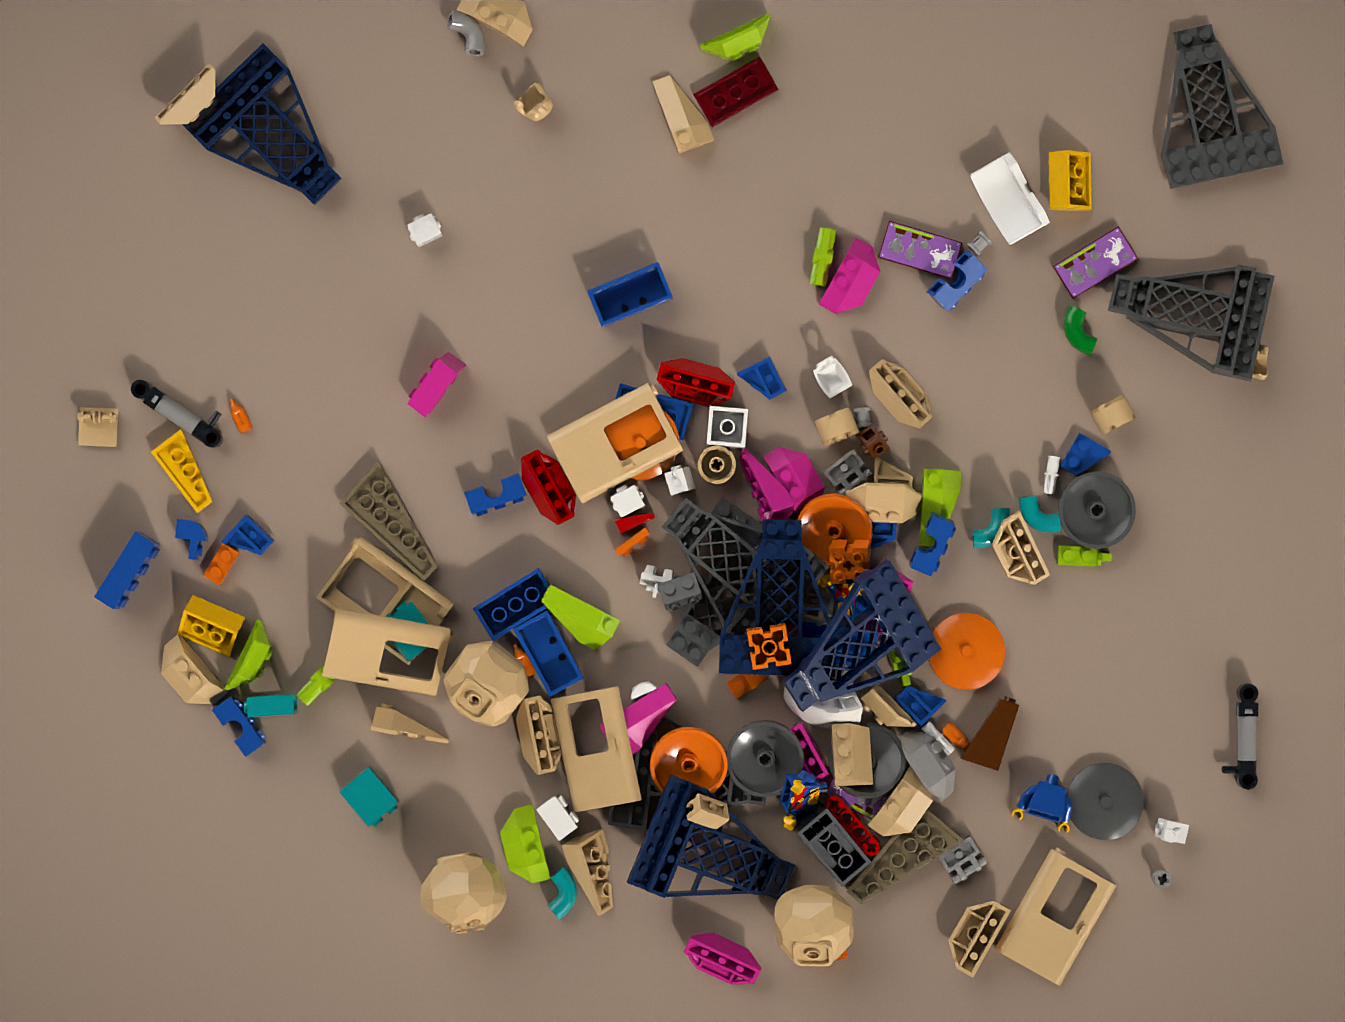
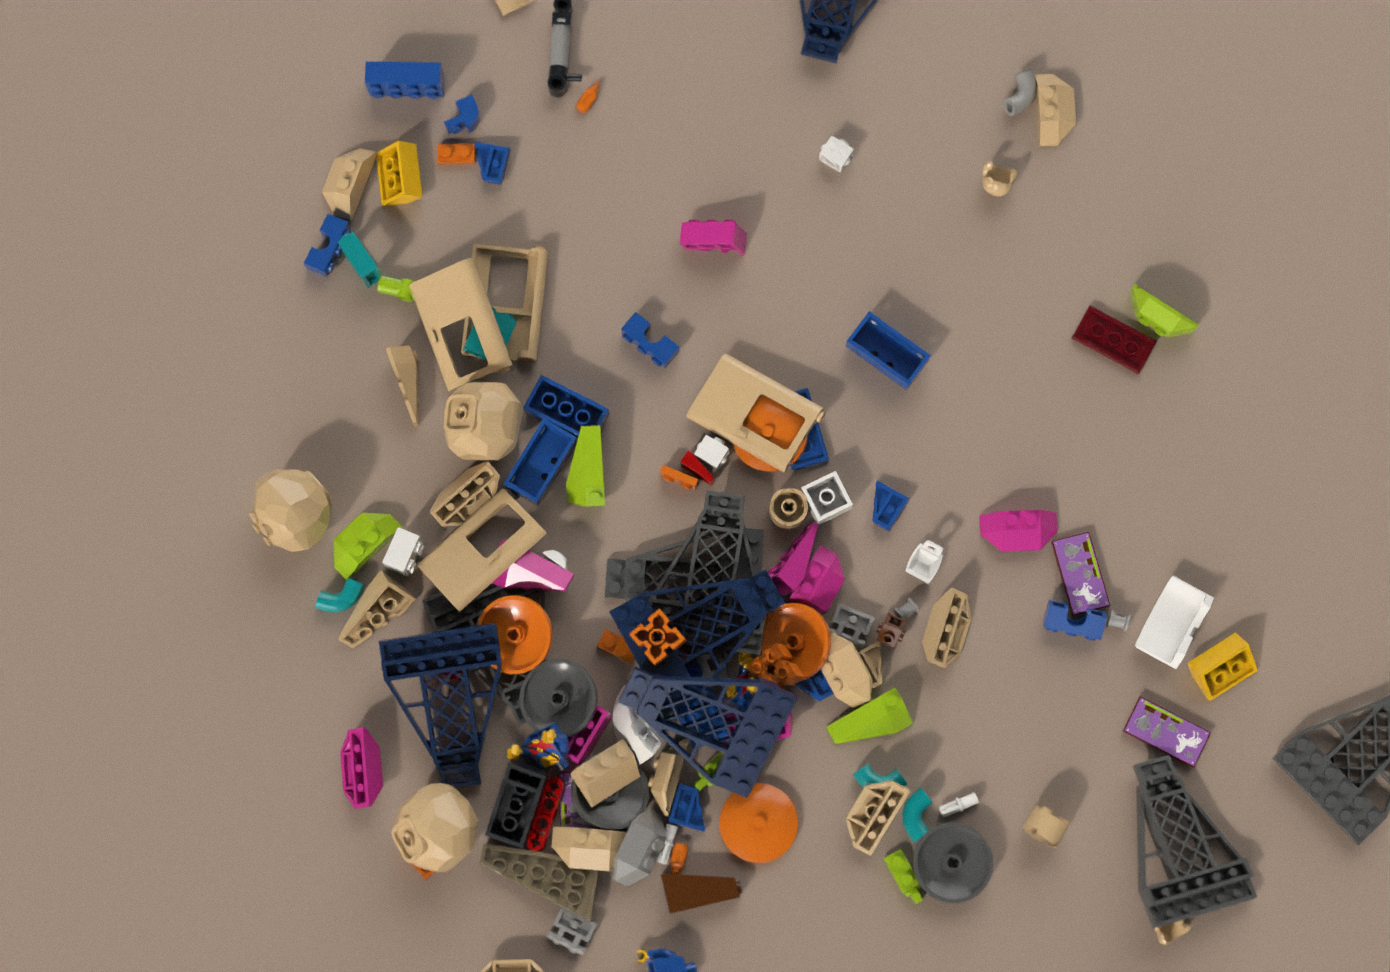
camera: 55 degrees right, 10 degrees down
(180, 465) = (517, 75): yellow wing -> none
(252, 657) = (391, 222): lime wedge -> none
(369, 797) = (329, 386): teal brick -> none
(383, 514) = (577, 258): dark tan wing -> none
(522, 657) = (520, 446): orange piece -> none
(548, 487) = (683, 378): red wedge -> none
(651, 580) = (656, 520): white hips -> none
(679, 480) = (756, 485): white head -> none
(680, 592) = (660, 540): dark grey bracket -> none
(684, 120) = (1062, 311): tan wedge -> none
(695, 382) = (847, 448): red wedge -> none
(708, 812) = (481, 673): tan hinge -> none
(822, 257) = (1022, 493): lime piece -> none
(836, 426) = (884, 590): tan brick -> none
(927, 559) = (851, 733): blue arch -> none
(1074, 331) = (1096, 749): green cylinder -> none
(1083, 455) = (993, 822): blue wing -> none

